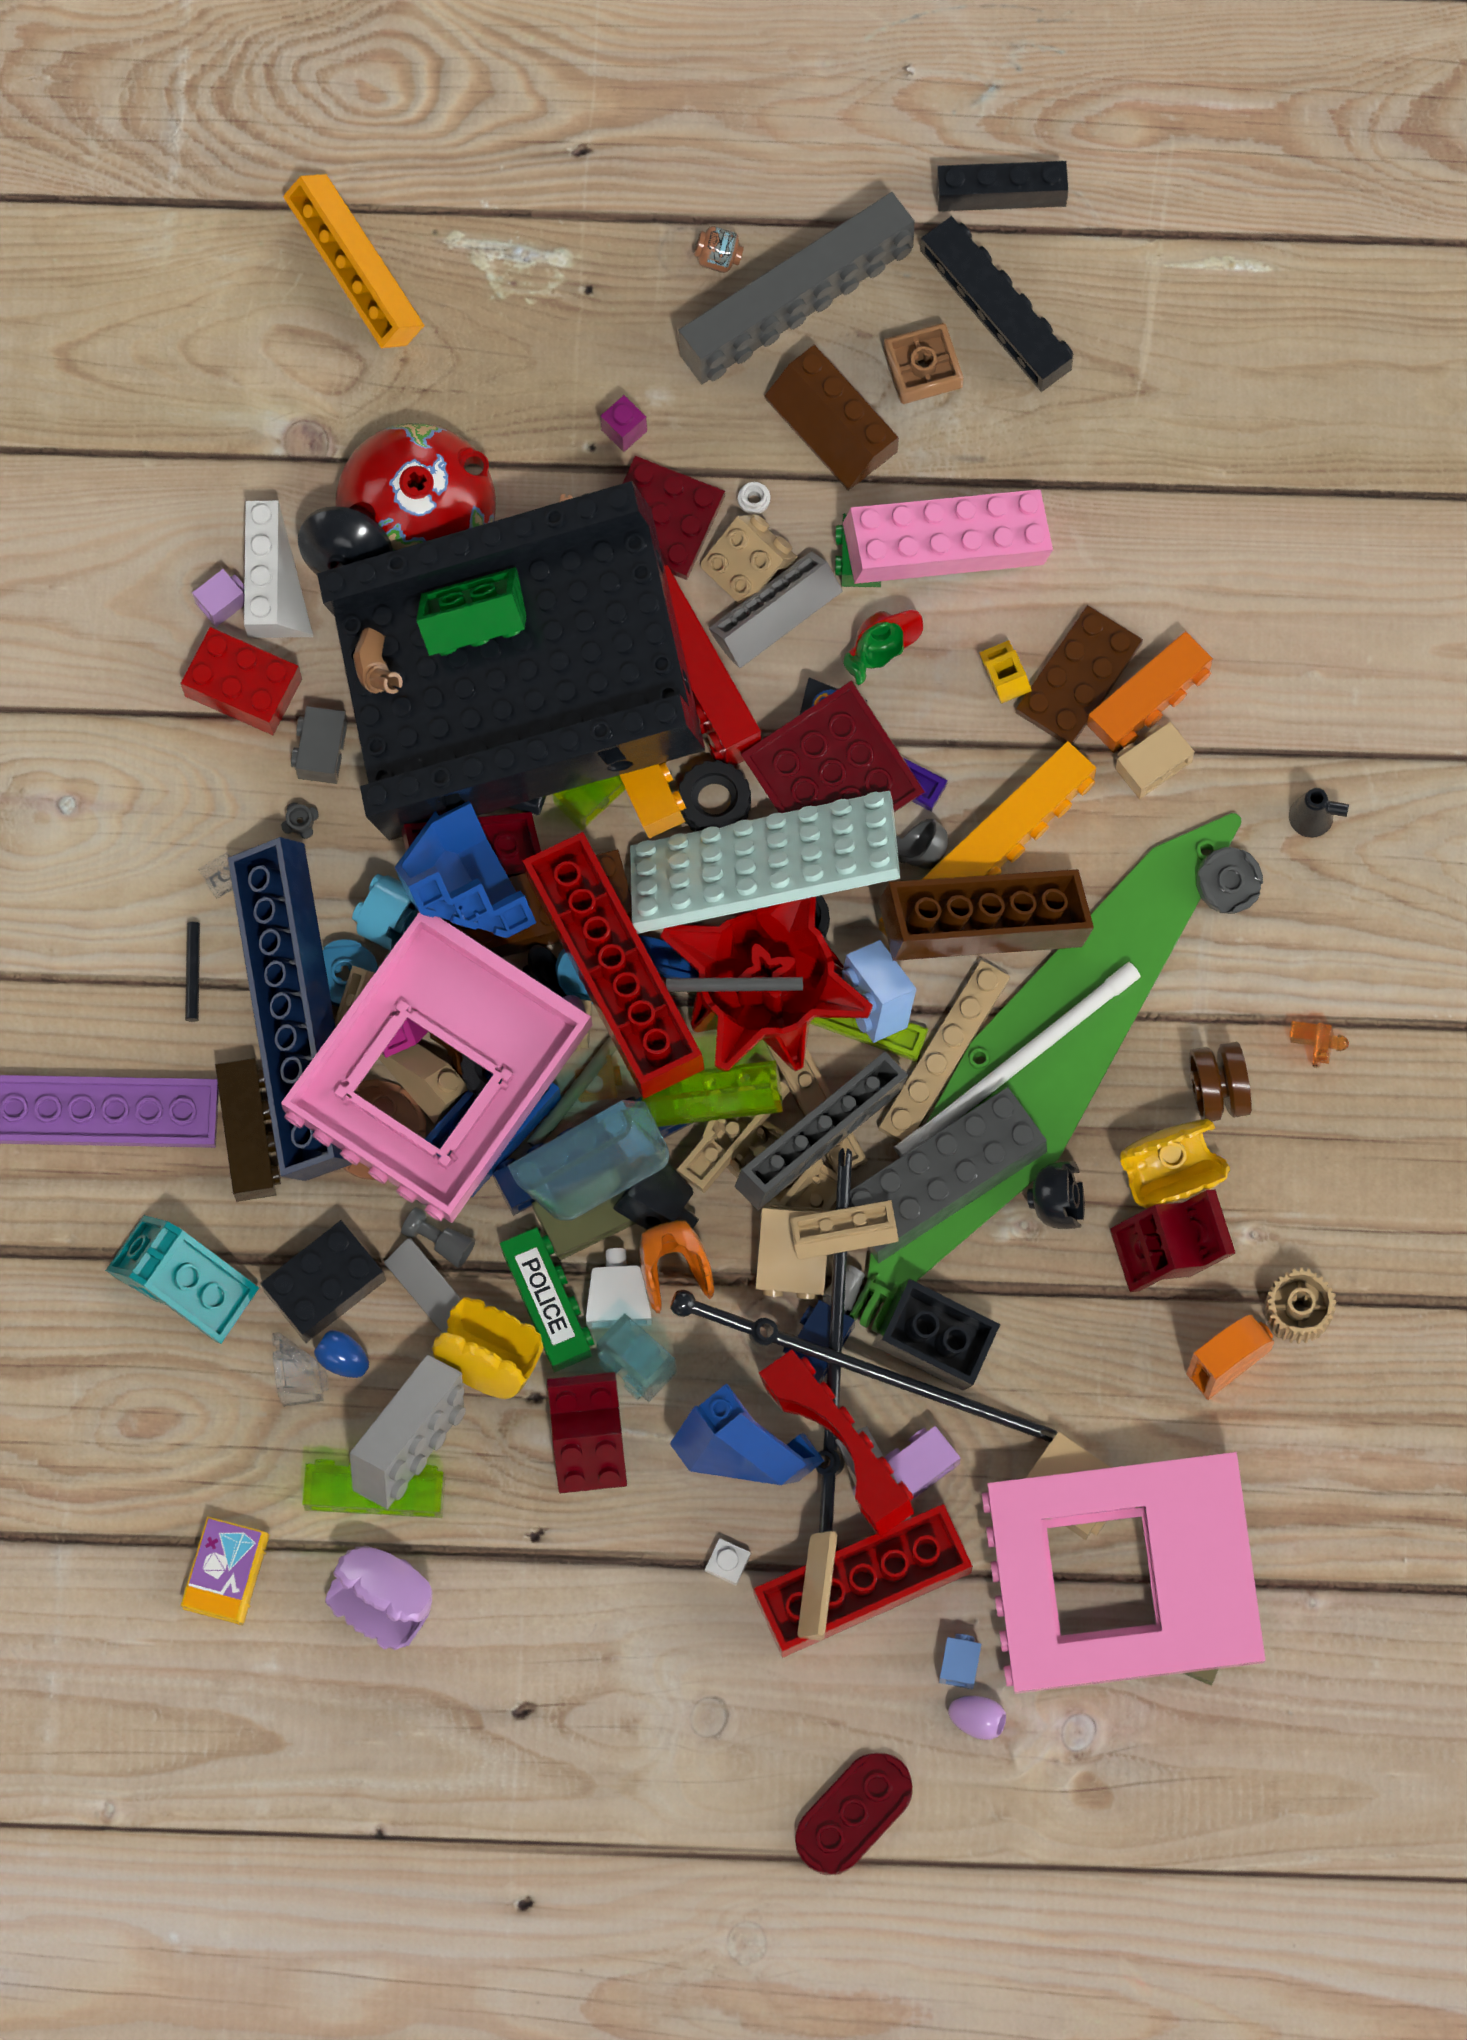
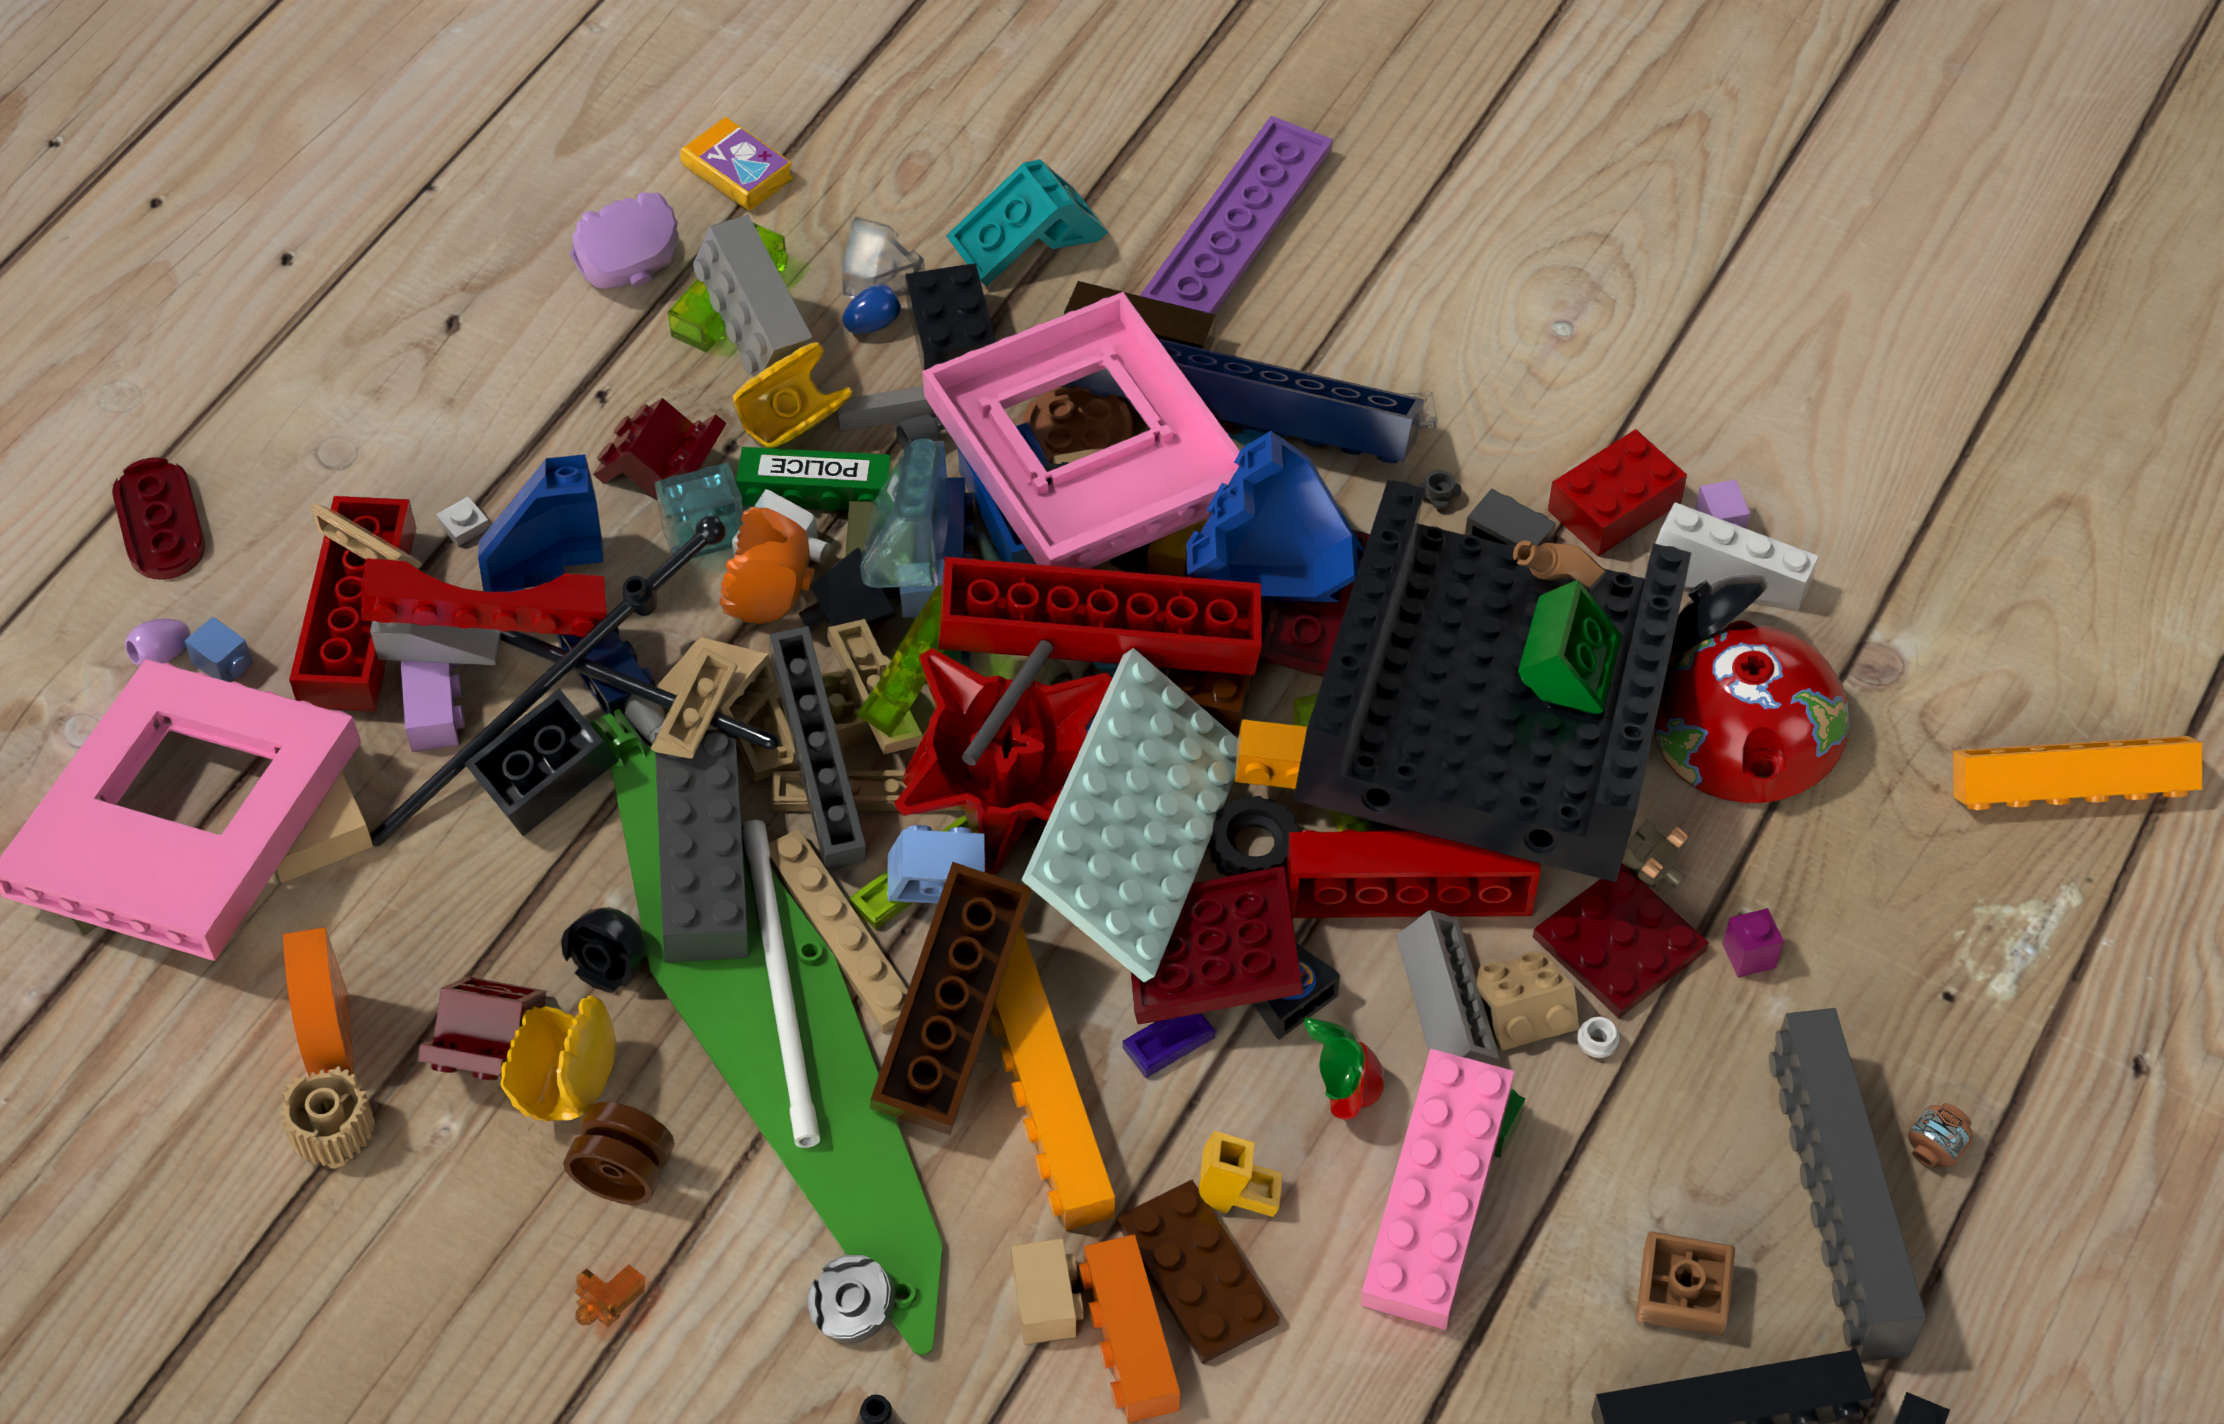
camera: 115 degrees right, 20 degrees down
(192, 972) = (1329, 352): black bar -> none
(832, 418) = (1662, 1162): reddish brown slope -> none
(923, 844) = (1082, 1004): dark grey piece -> none

